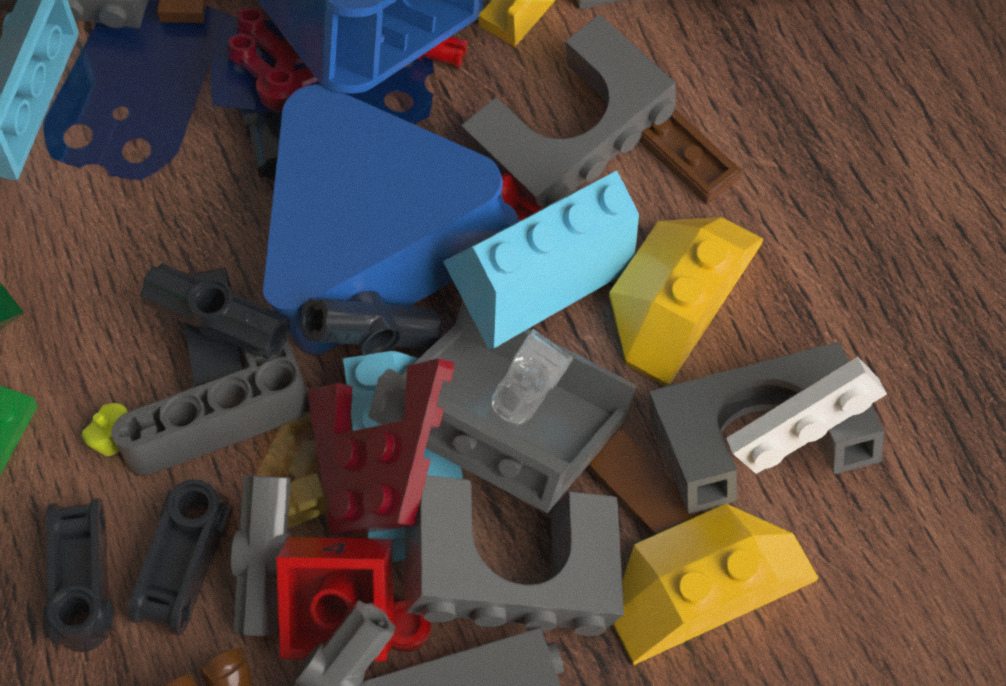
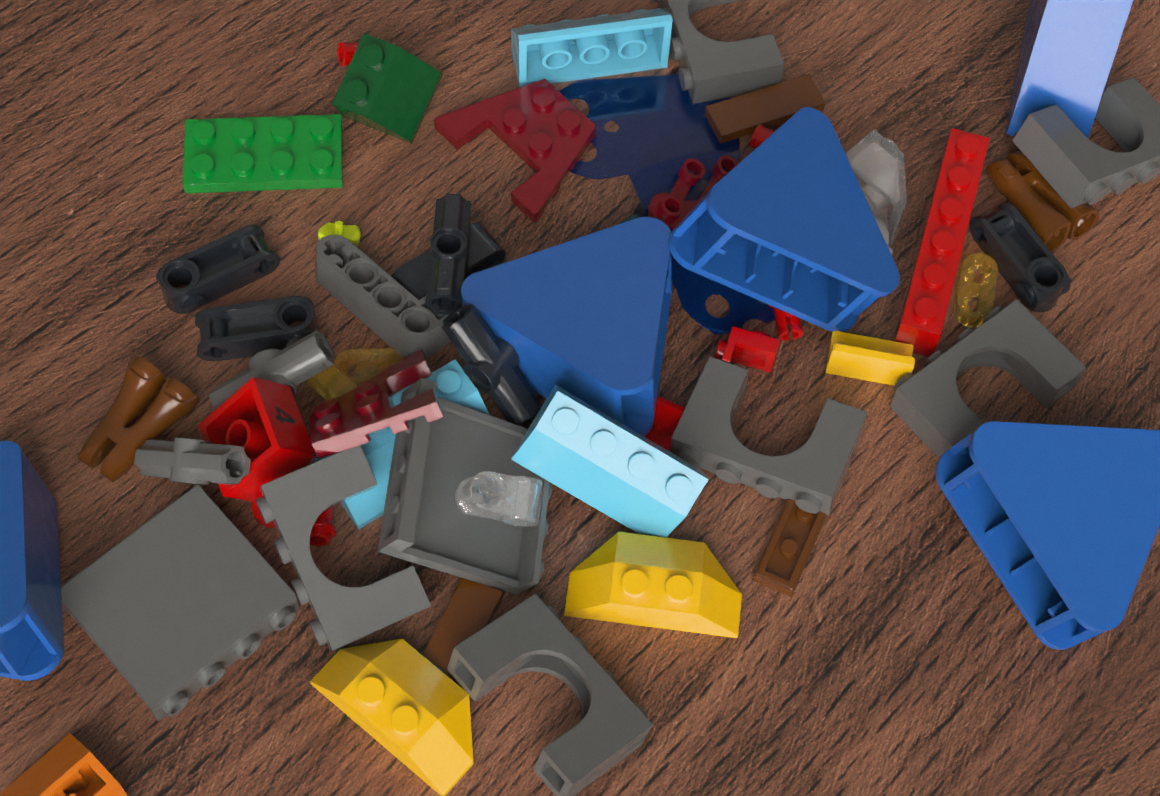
camera: 60 degrees right, 0 degrees up
(85, 179) = (537, 127): none -> dark red wing
(462, 93) = (749, 349): none -> red bracket
(806, 416) = (553, 715): white plate -> none

